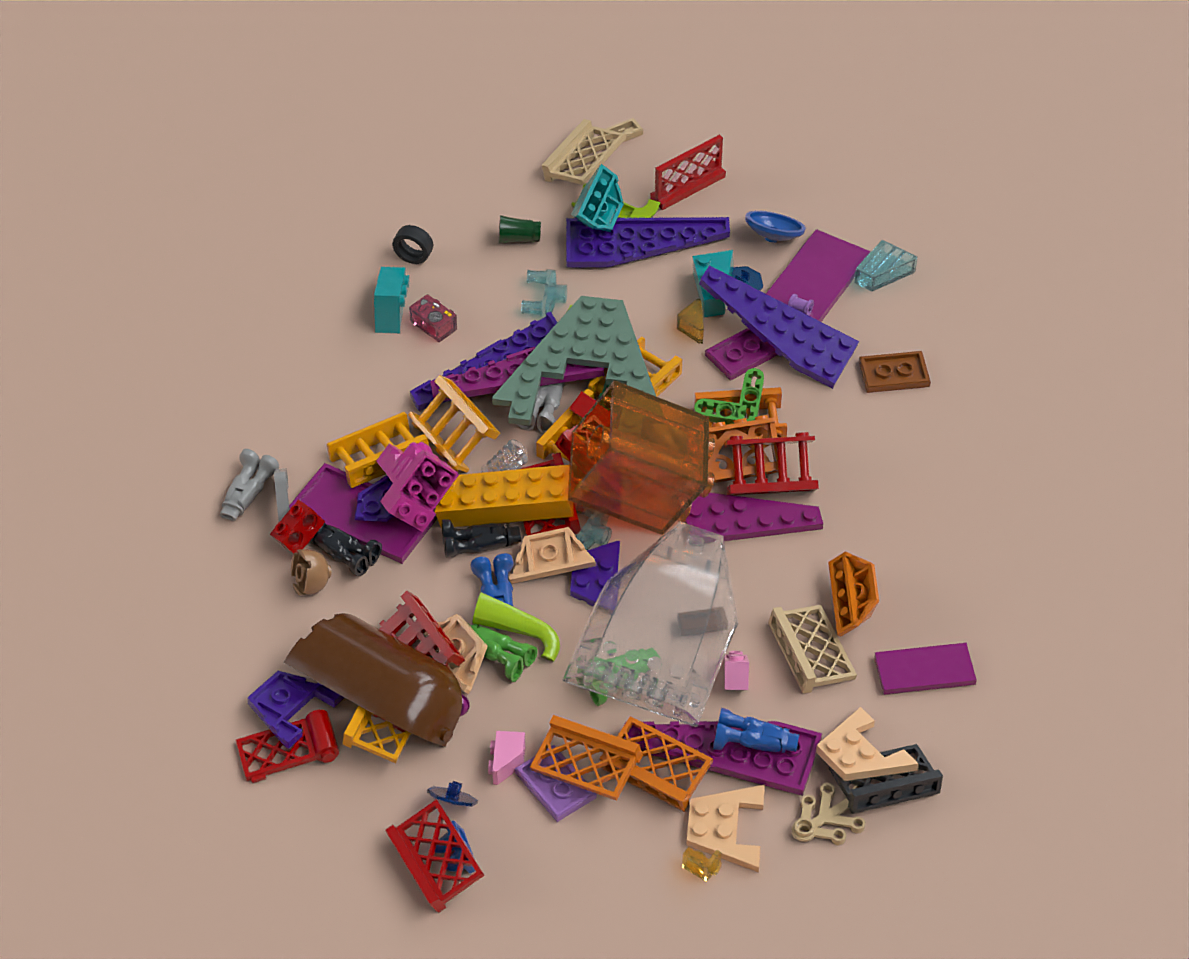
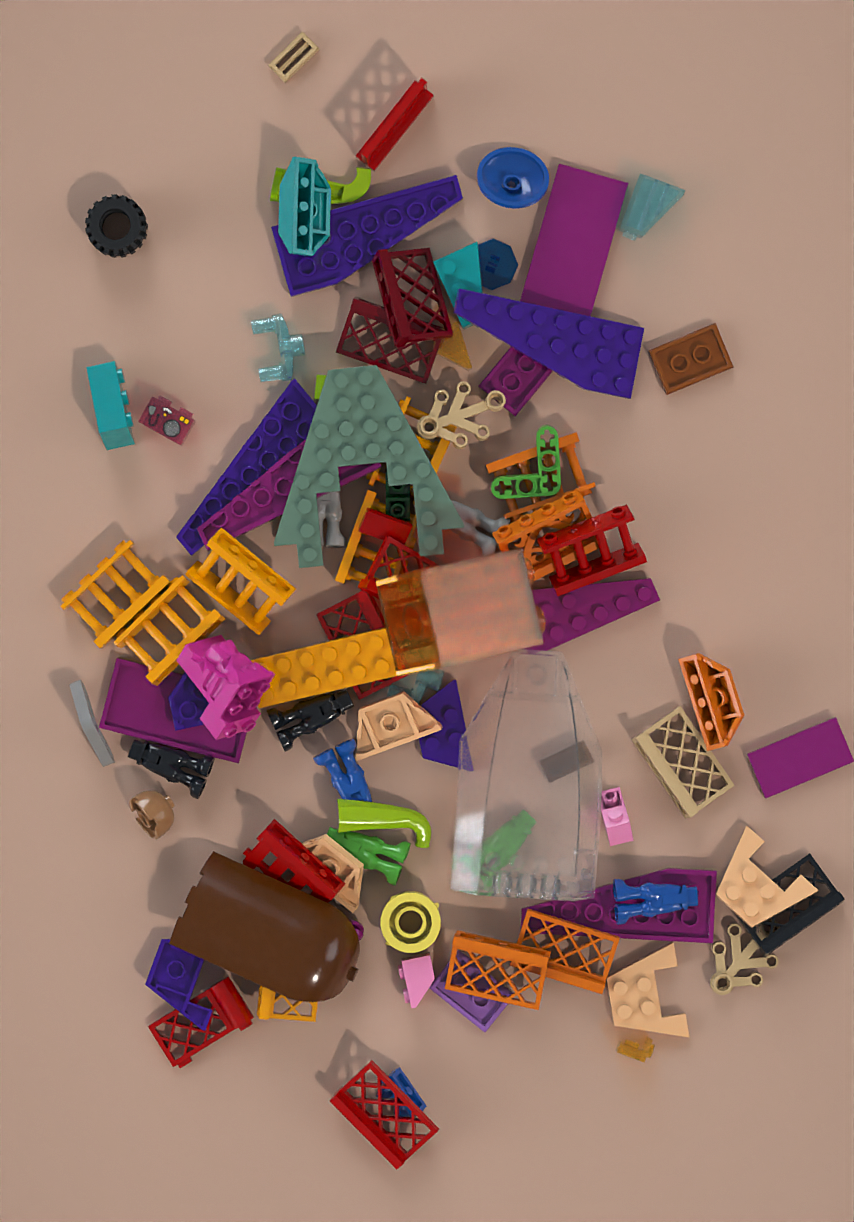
camera: 15 degrees left, 40 degrees up
(244, 490) = (43, 716): light grey piece -> none
(297, 527) = (122, 765): red brick -> none
(327, 405) = (120, 616): none -> light orange fence
(416, 235) = (111, 322): black tyre -> none
(441, 193) = (101, 211): none -> black tyre
(452, 794) = (380, 1043): clear blue piece -> none
(510, 457) = (310, 619): clear piece -> none
(513, 690) = (398, 937): none -> light yellow piece
(518, 230) = (222, 260): dark green plant -> none
(573, 147) = (242, 117): tan fence -> none
(652, 271) = (392, 296): none -> dark red fence
(652, 295) = (378, 313): none -> dark red fence
(658, 354) = (458, 417): none -> tan plant
(801, 304) = (570, 300): medium lavender bush -> none

